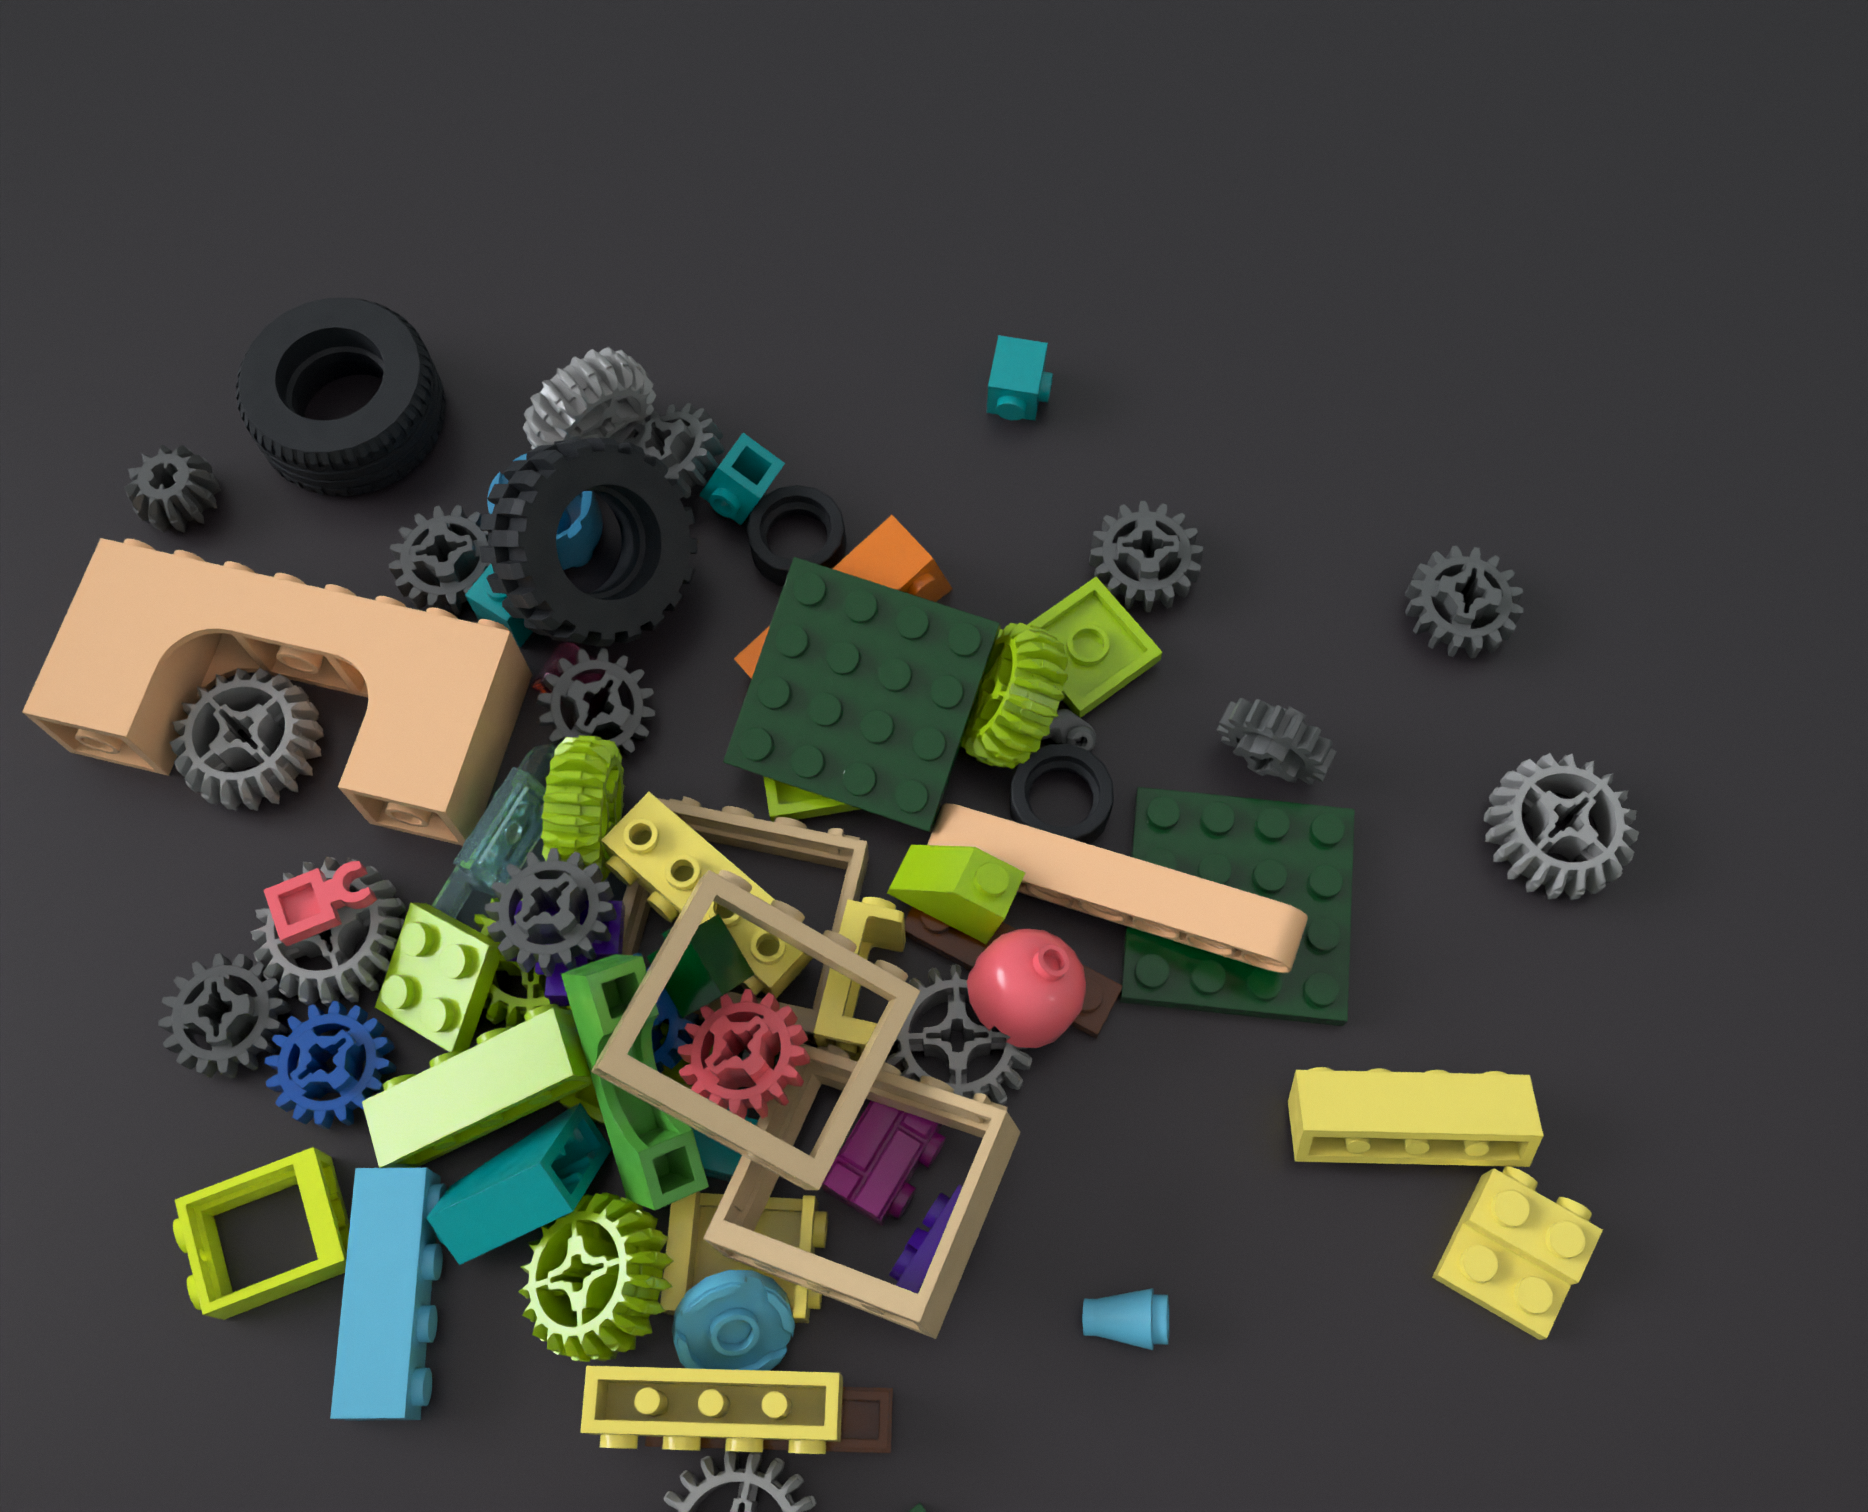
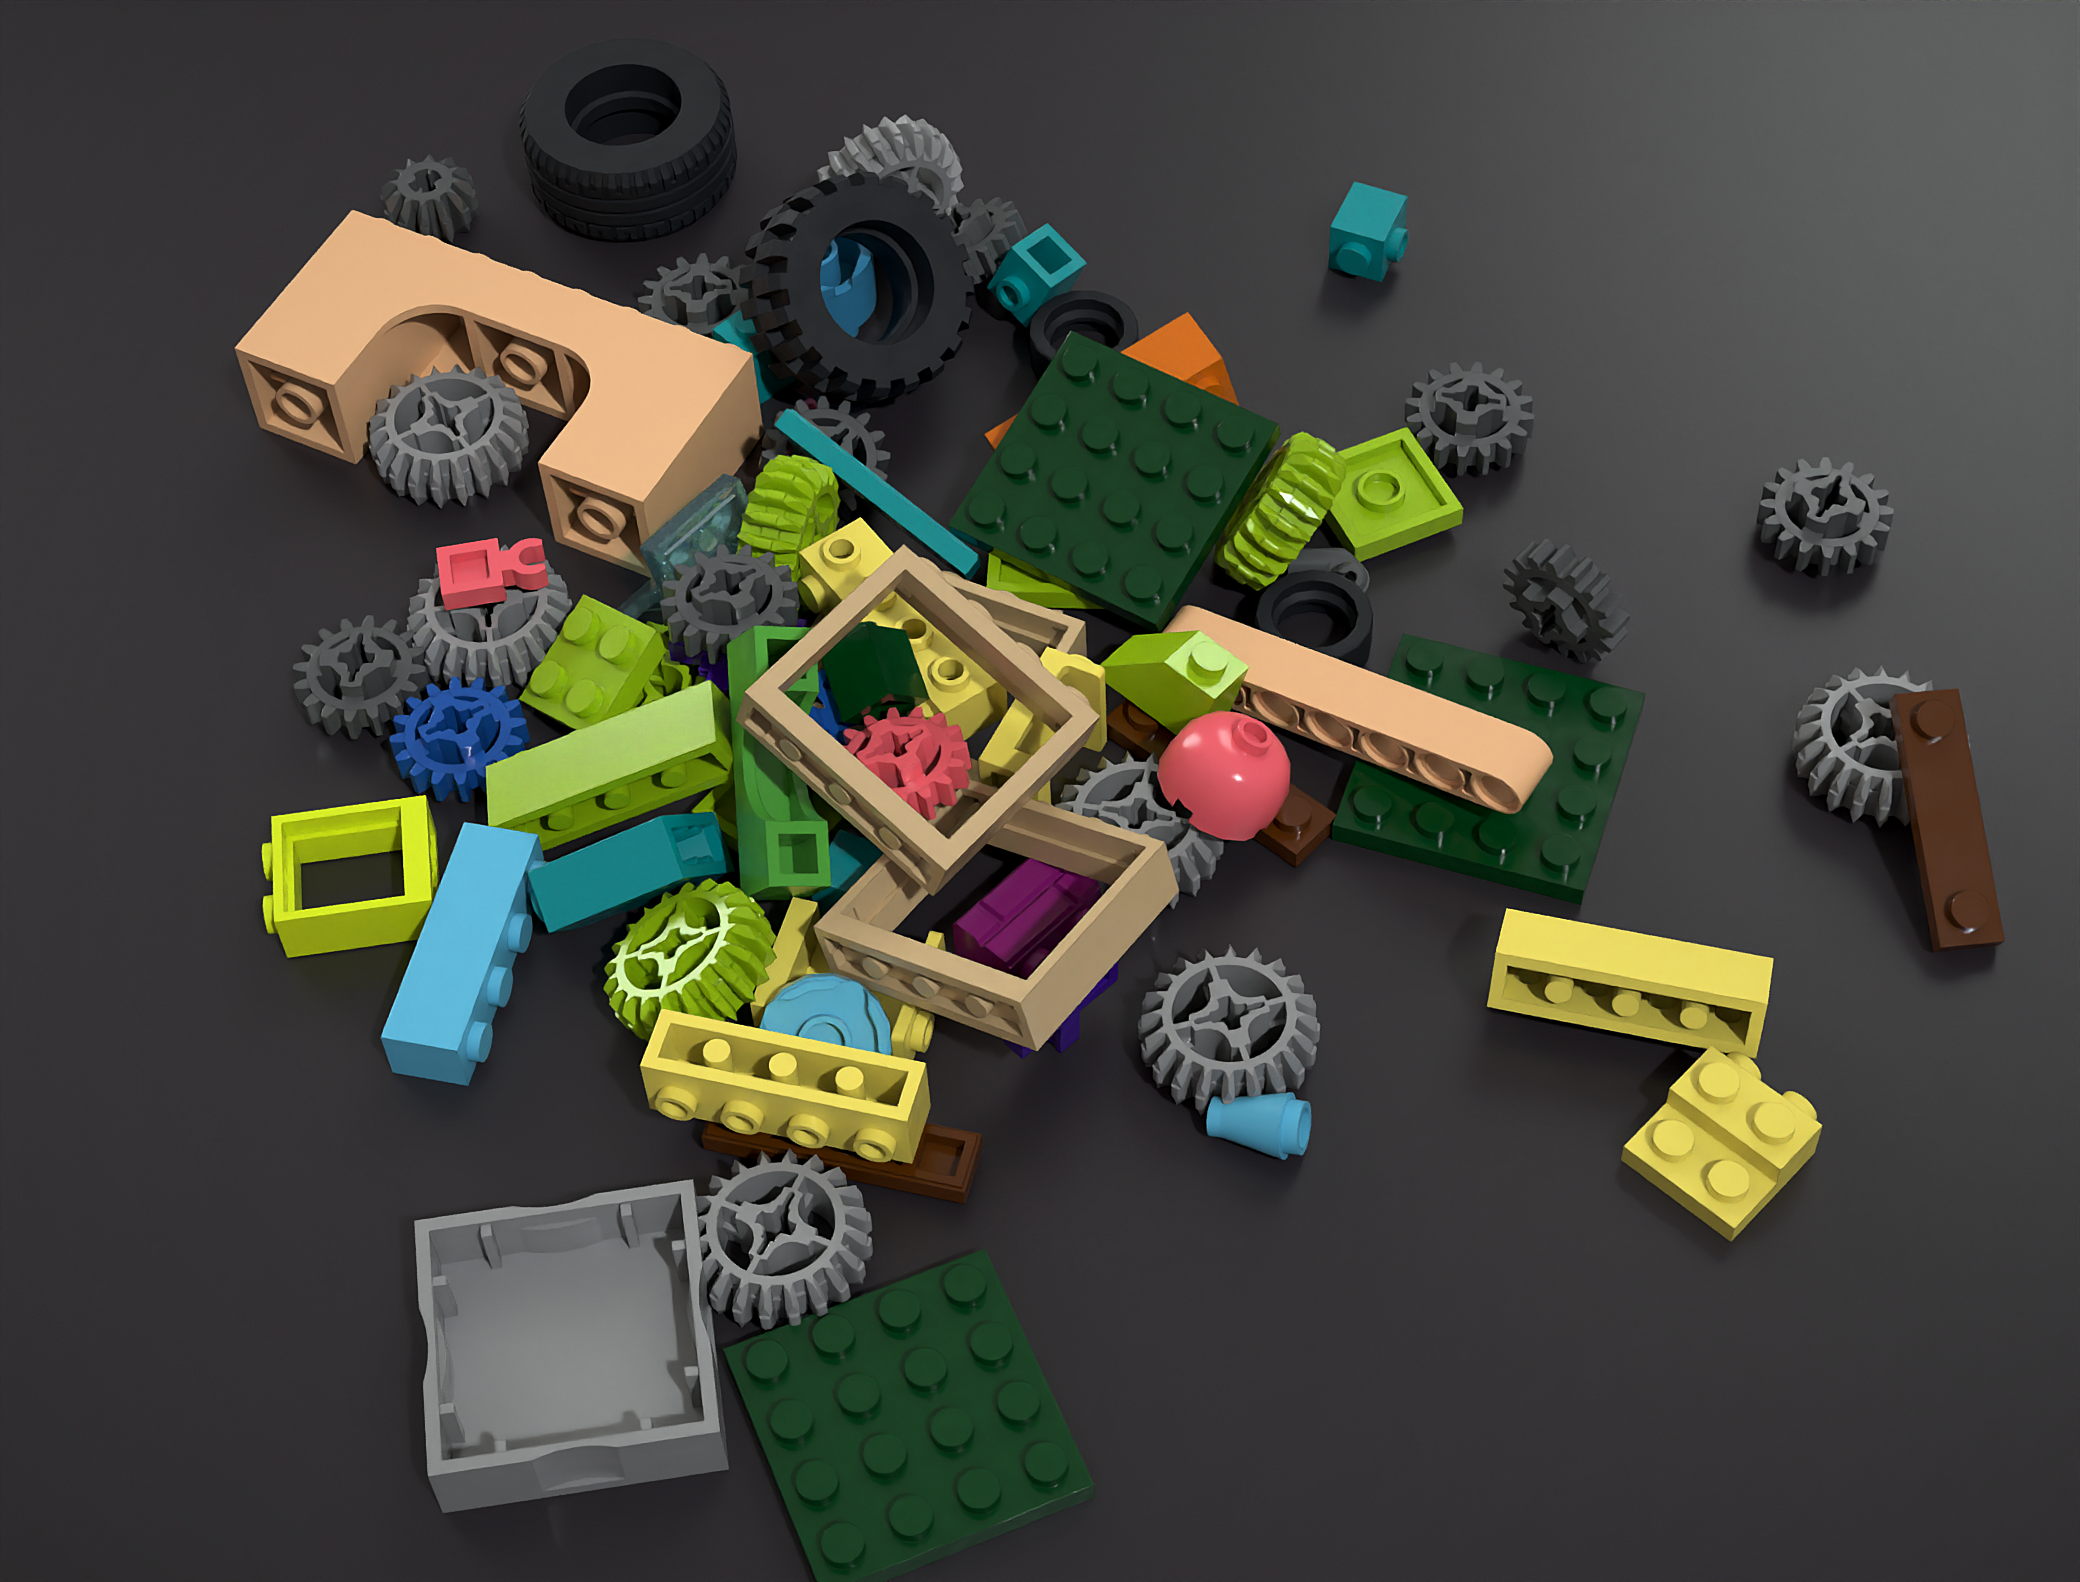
camera: 15 degrees right, 15 degrees down
(654, 745) = (879, 494): none -> teal tile
(1069, 1208) = (1243, 1013): none -> light grey gear
(1638, 900) = (1946, 820): none -> reddish brown plate

